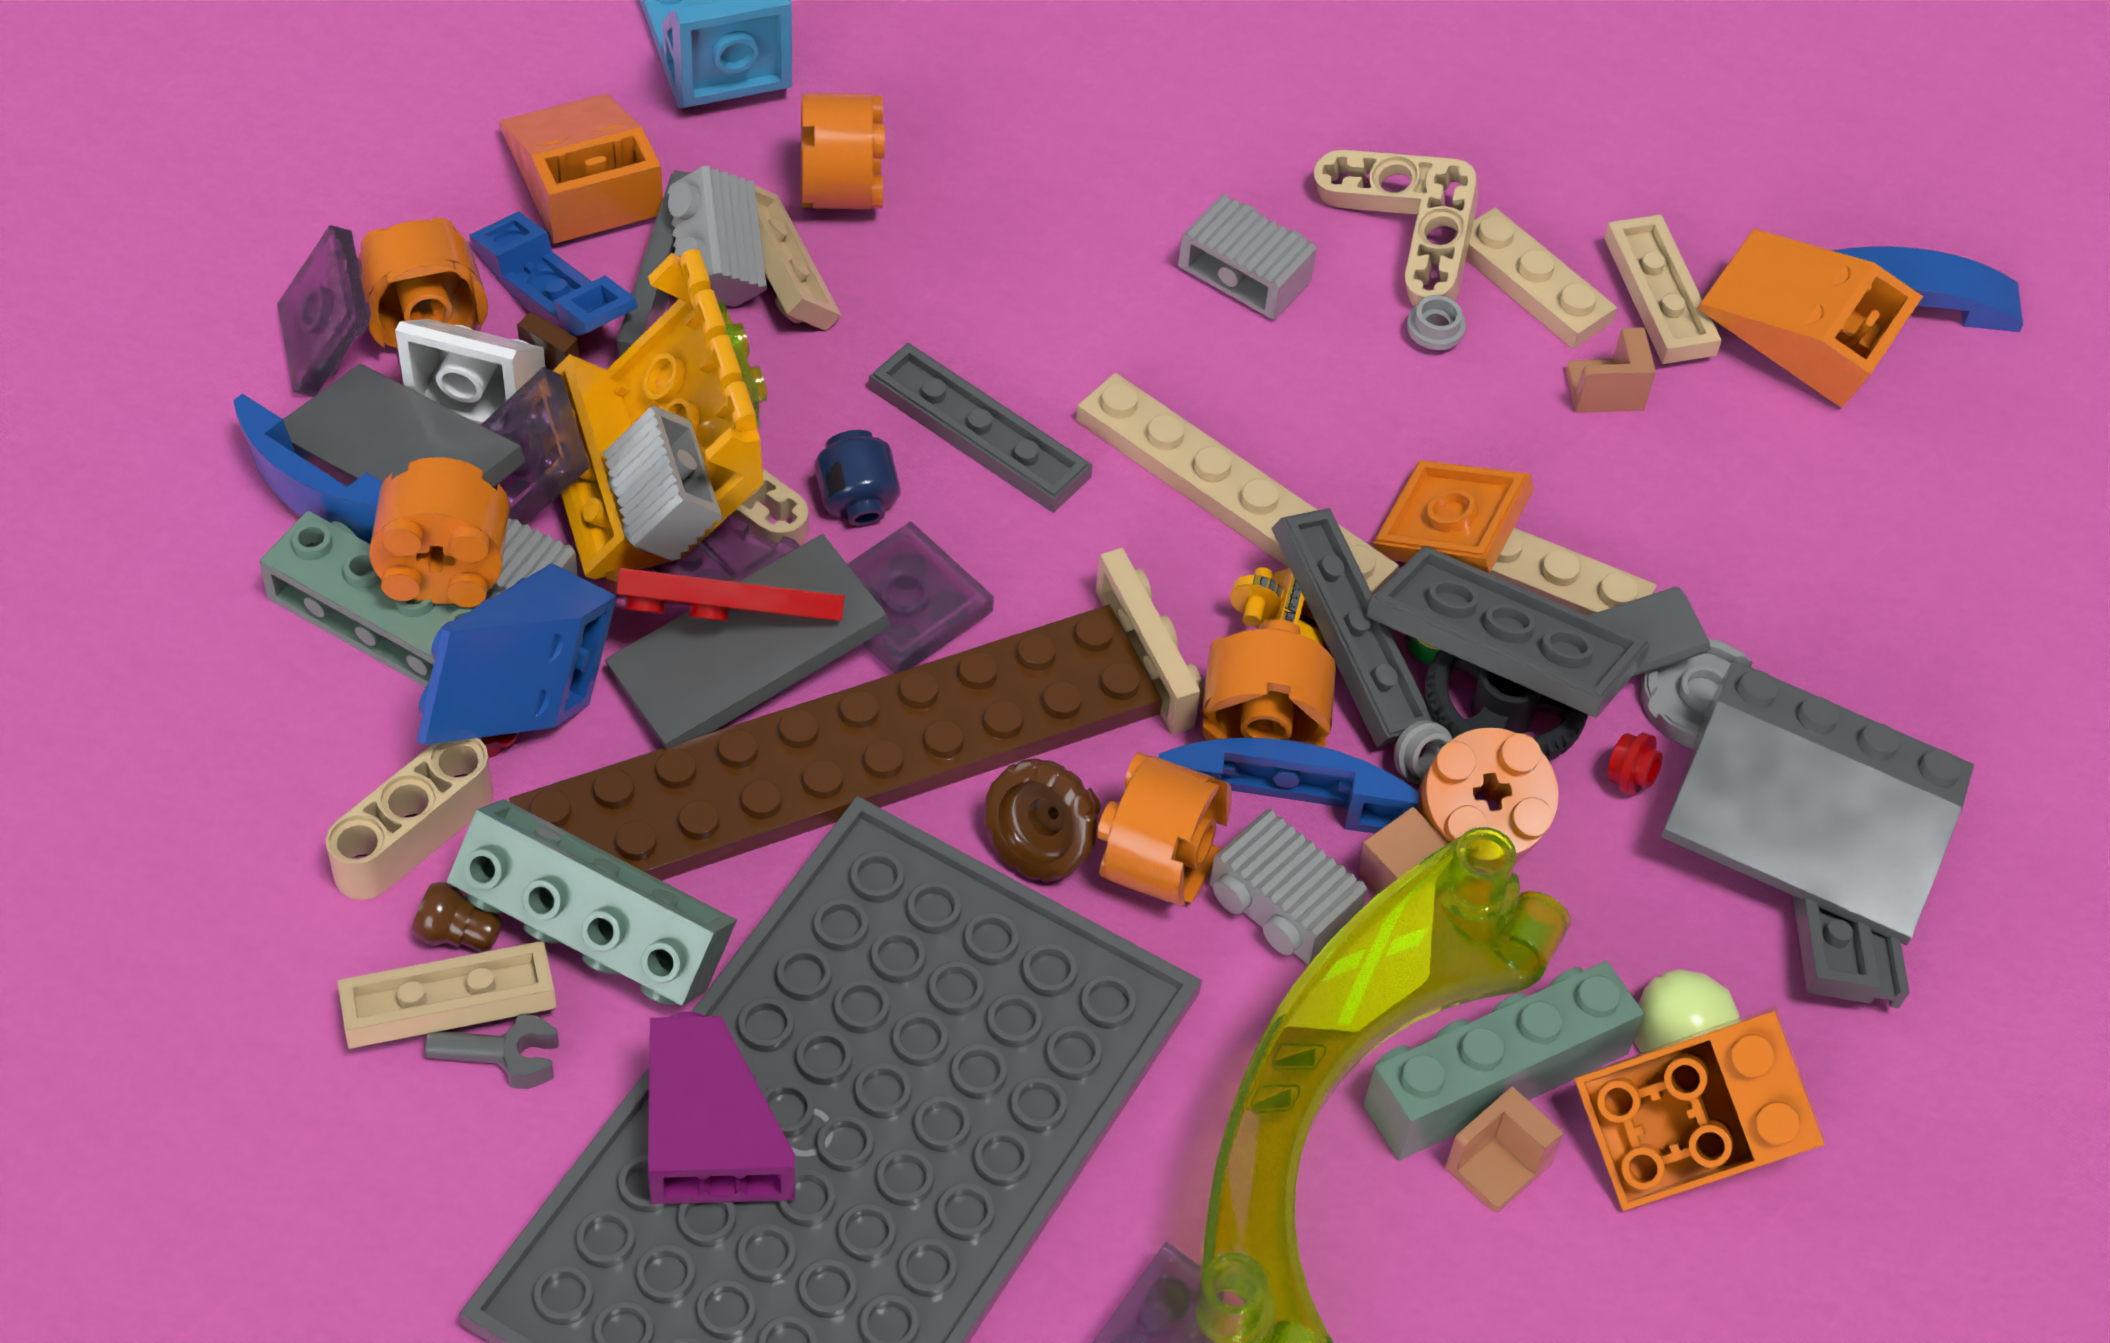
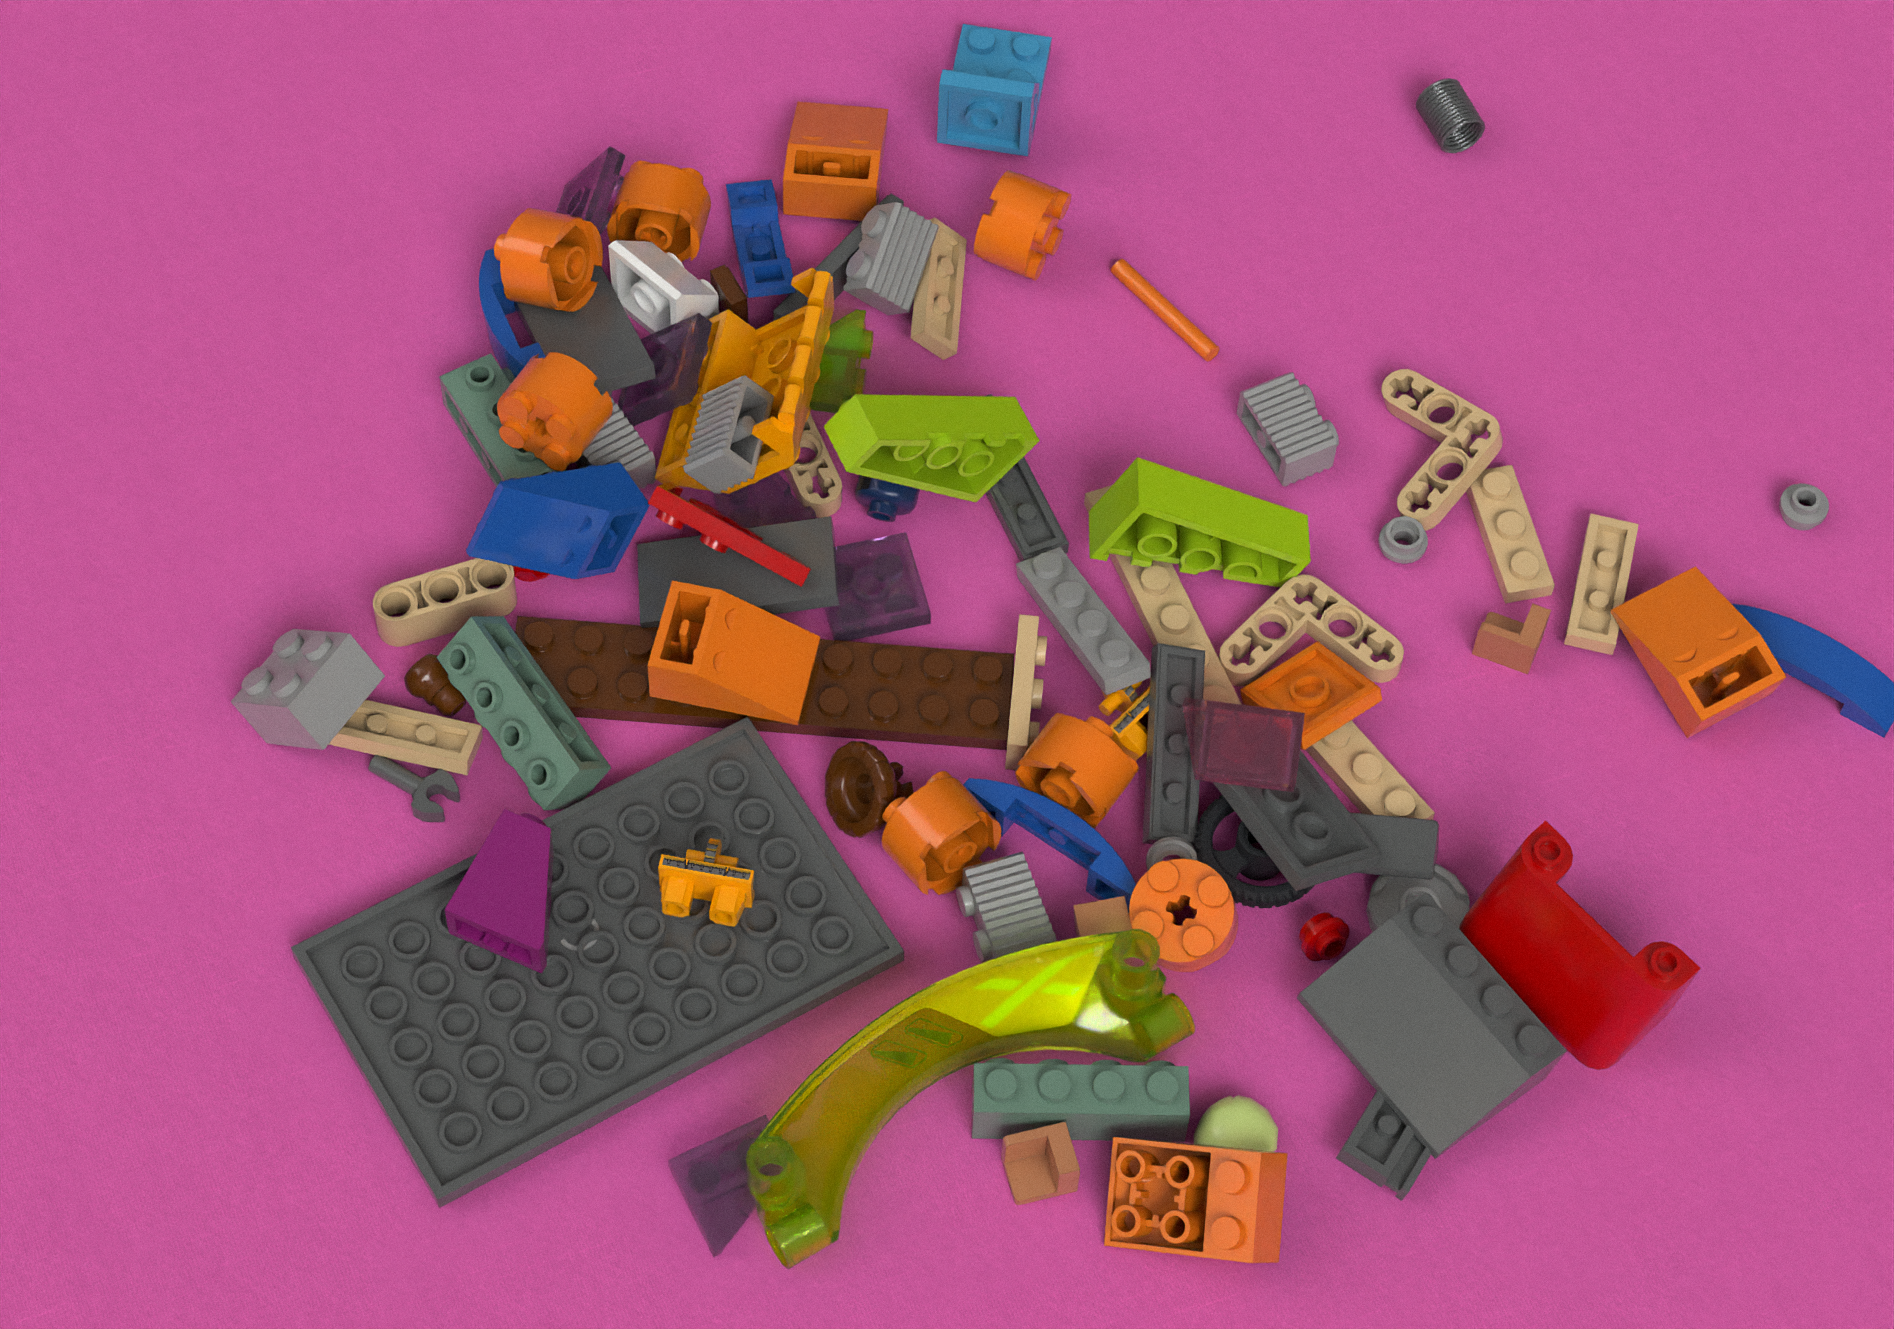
camera: 30 degrees right, 5 degrees up
(306, 986) = (307, 688): none -> light grey brick
(324, 376) = (549, 259): none -> orange brick
(804, 731) = (730, 655): none -> orange slope
(902, 398) = (932, 440): none -> lime wedge
(934, 995) = (707, 878): none -> light orange hips
(1036, 189) = (1165, 310): none -> orange bar
(1170, 534) = (1083, 621): none -> light grey plate
(1230, 384) = (1198, 525): none -> lime wedge
(1385, 445) = (1301, 619): none -> tan beam
(1442, 582) = (1243, 744): none -> clear pink slope
(1796, 141) = (1801, 516): none -> light grey plate
(1911, 657) = (1566, 963): none -> red windscreen

